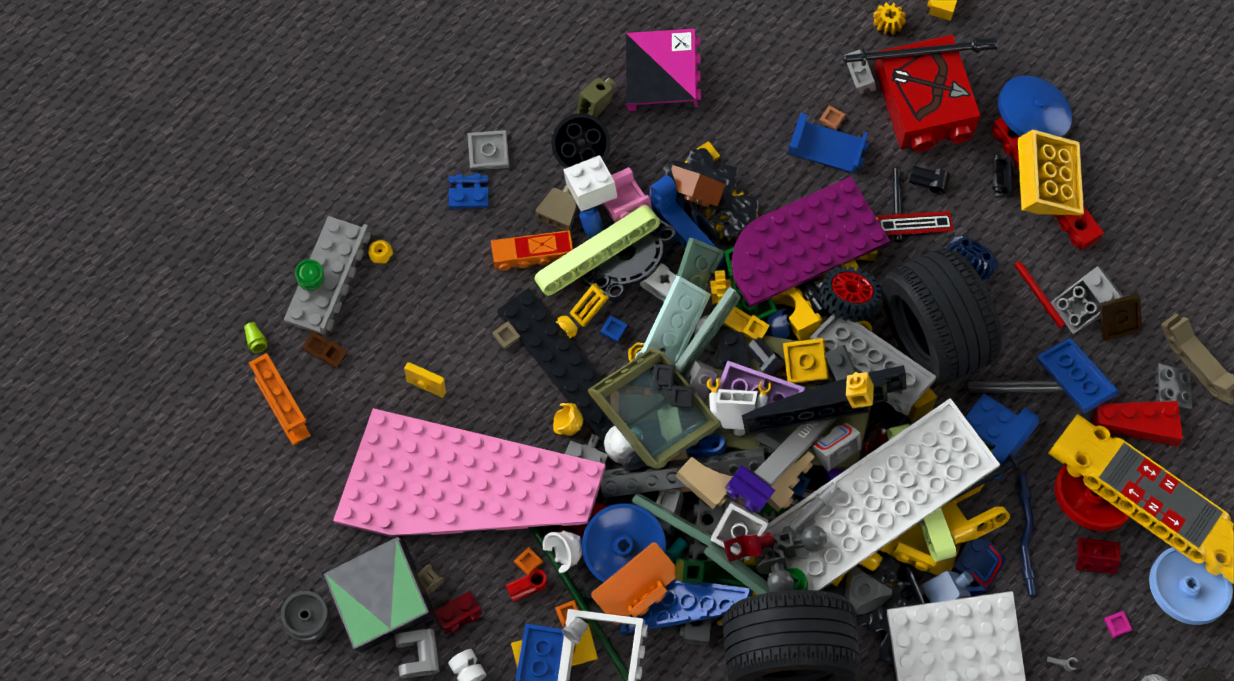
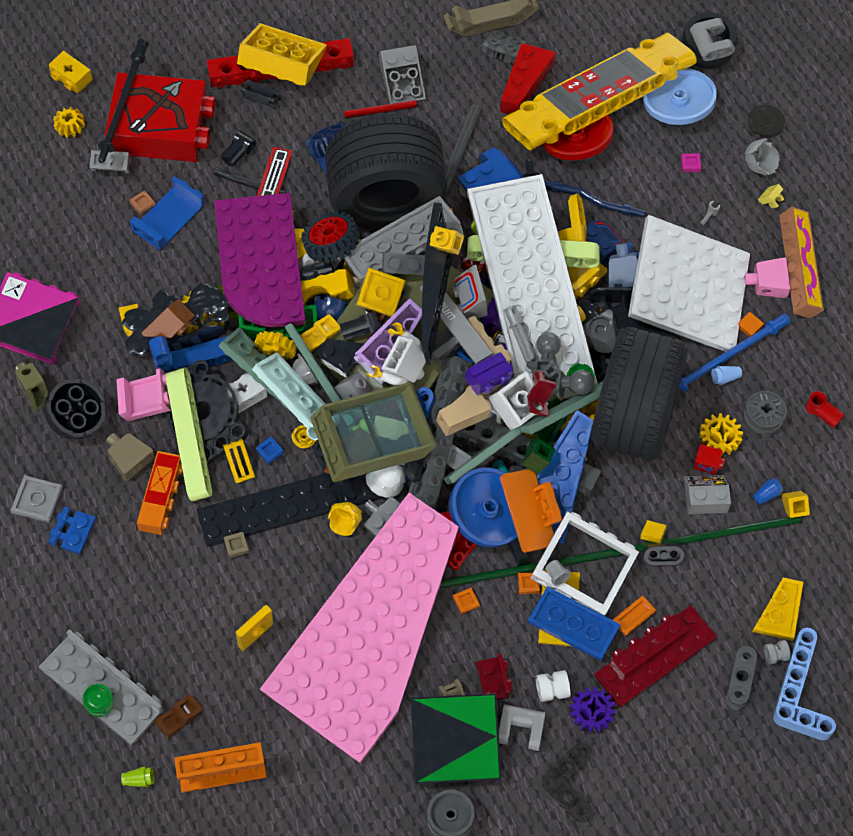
camera: 70 degrees left, 5 degrees down
(380, 257) = (101, 636): yellow plate -> none
(524, 586) = (490, 609): red piece -> none
(567, 325) = (250, 486): yellow plate -> none
(567, 548) = (471, 560): white helmet -> none
(590, 183) = (122, 413): white brick -> none
(591, 221) = (155, 430): blue brick -> none
(664, 382) = (352, 413): black tile -> none
(1035, 105) = (210, 45): blue dish -> none
(1077, 375) = (467, 106): blue tile -> none
(1097, 556) = (628, 153): dark red bracket -> none
(1121, 317) = (429, 55): dark brown tile -> none

